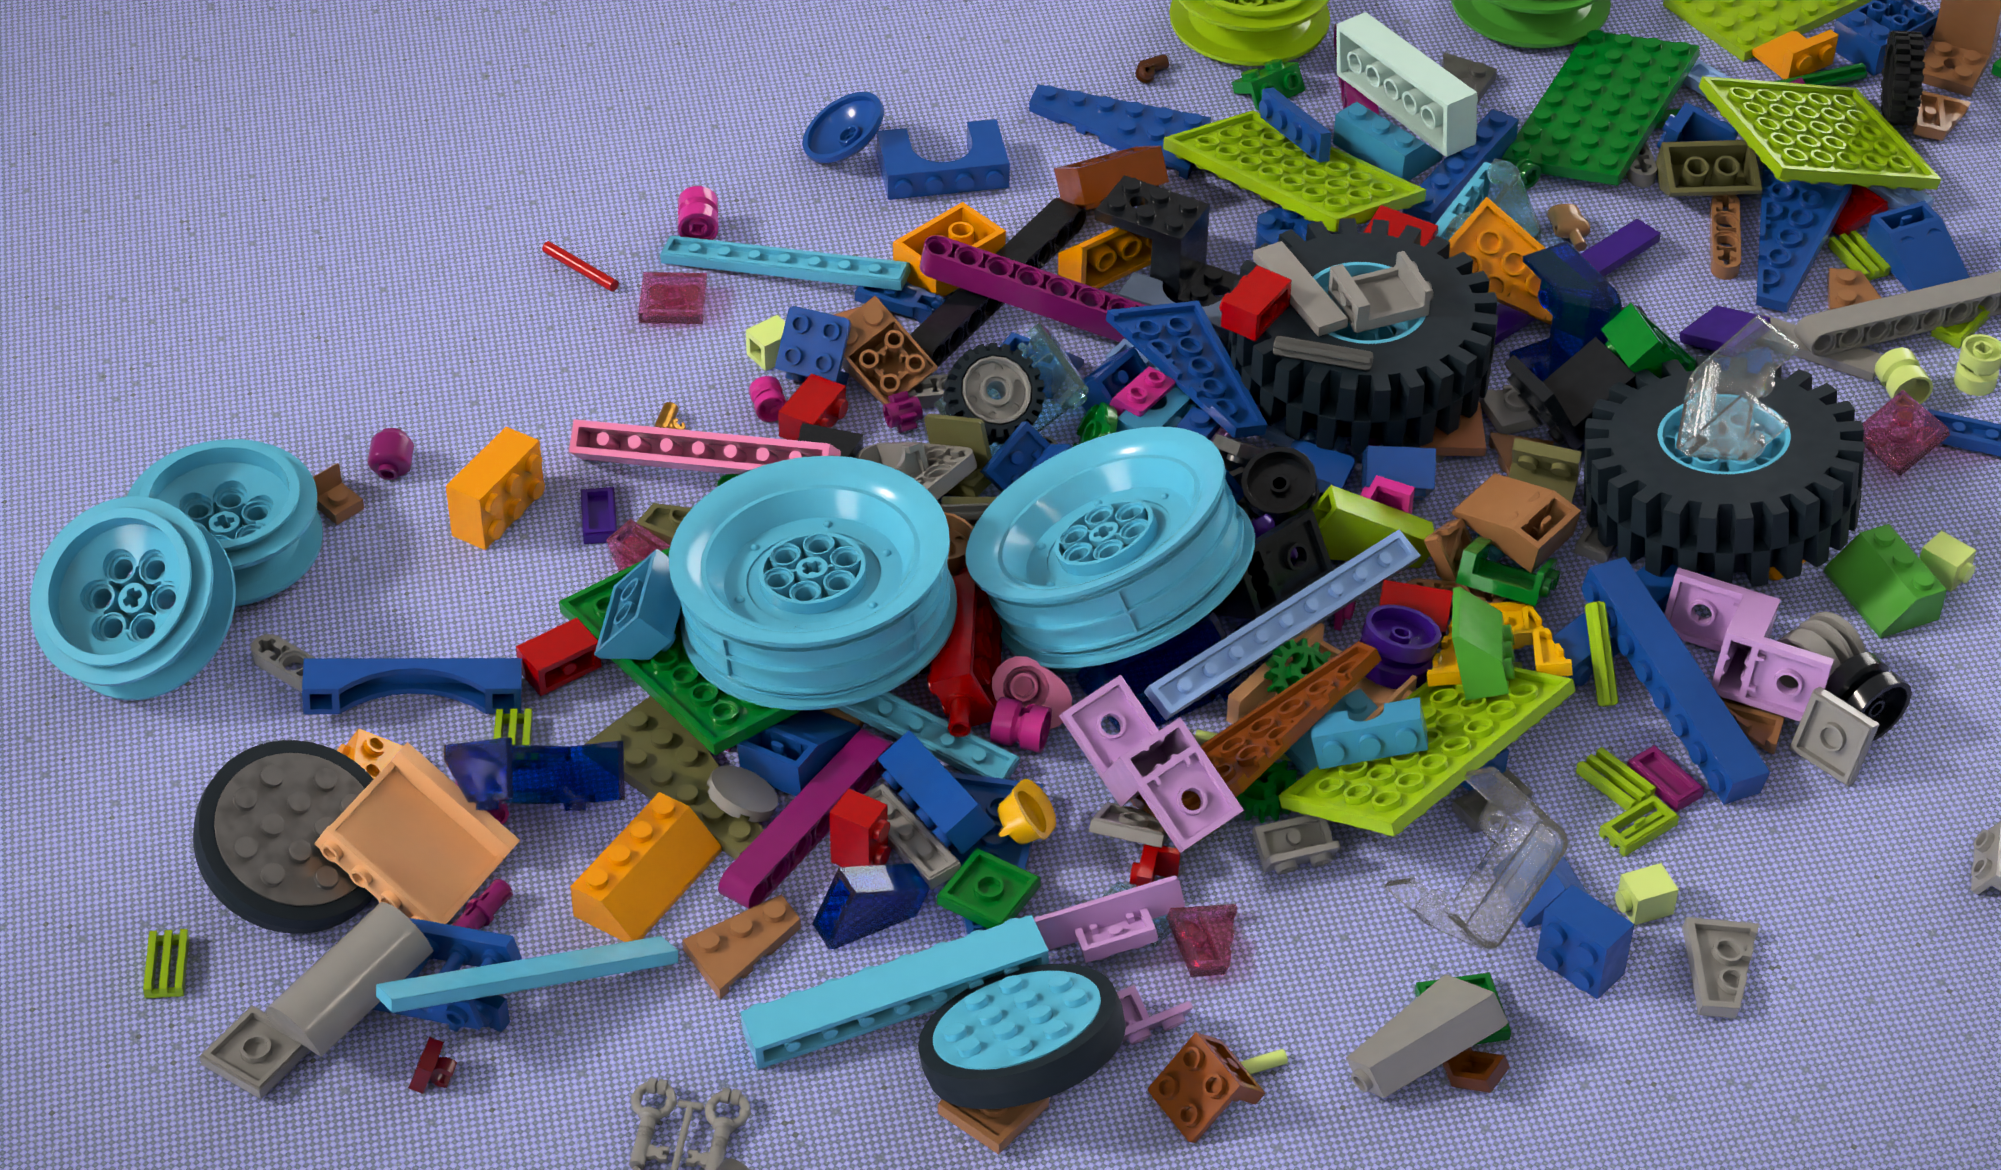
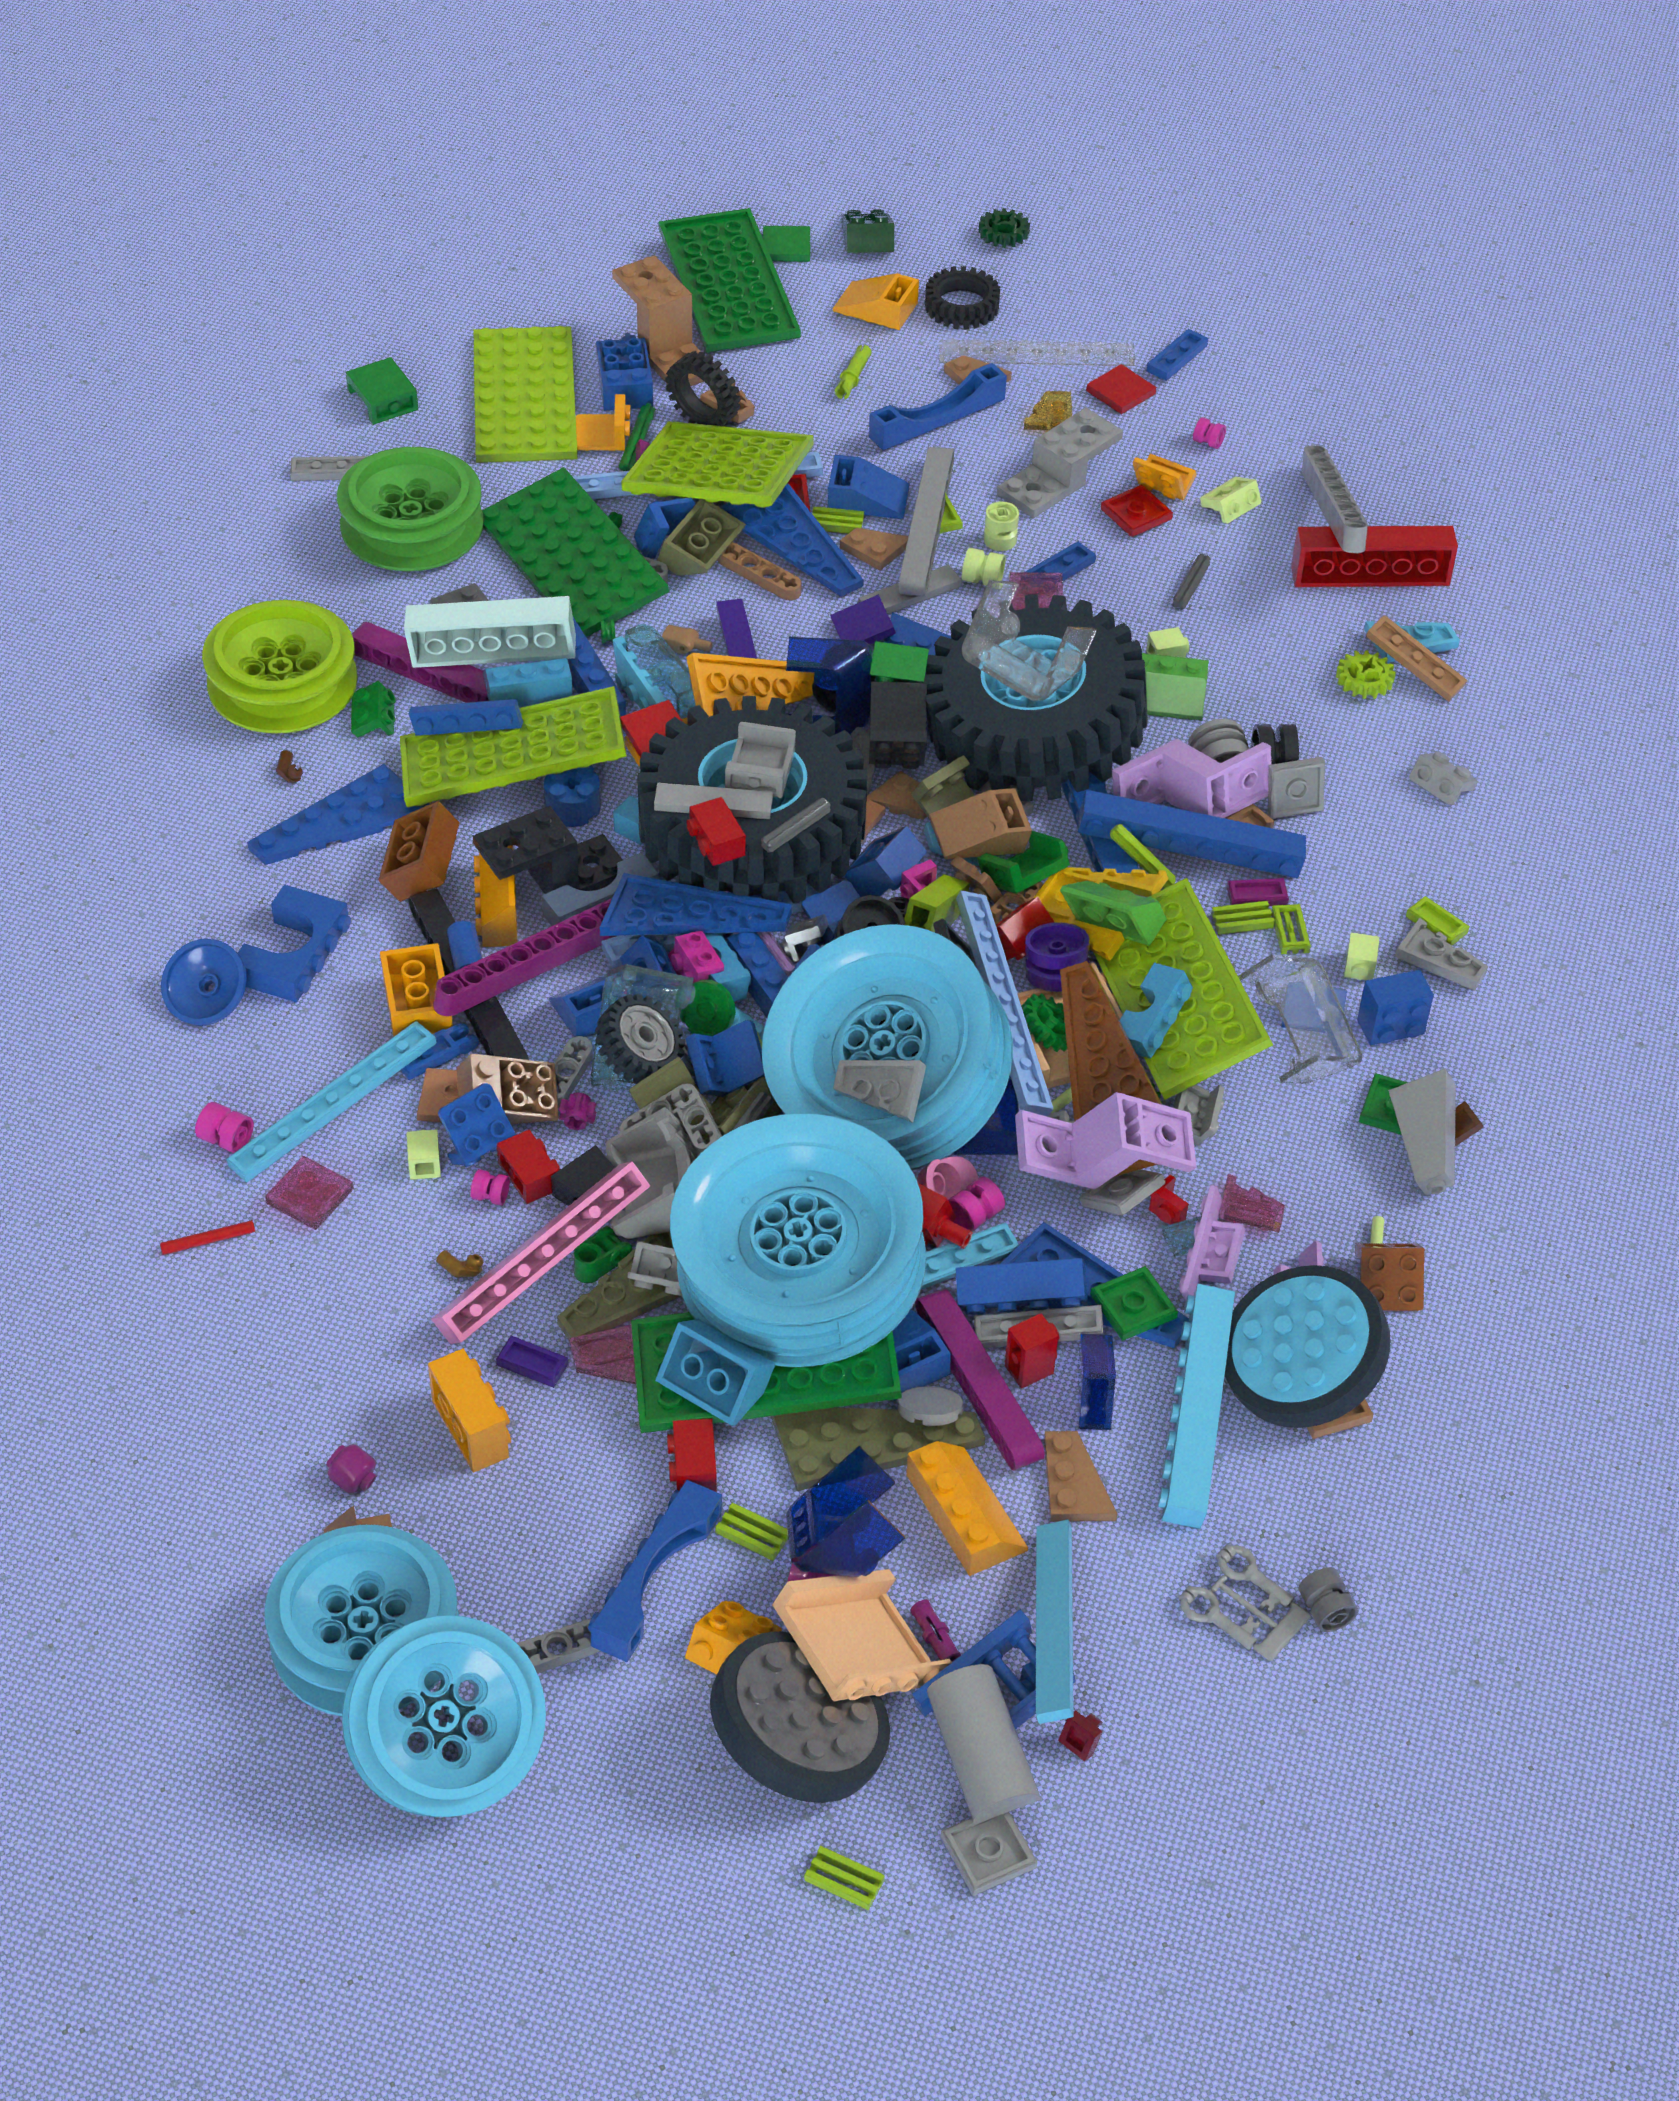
camera: 60 degrees left, 5 degrees up
(1019, 244) = (463, 944): none -> blue brick
(1026, 813) = (1086, 1246): yellow piece -> none
(1037, 547) = (882, 1084): none -> light grey wing
(1775, 945) = (1438, 920): none -> lime tile

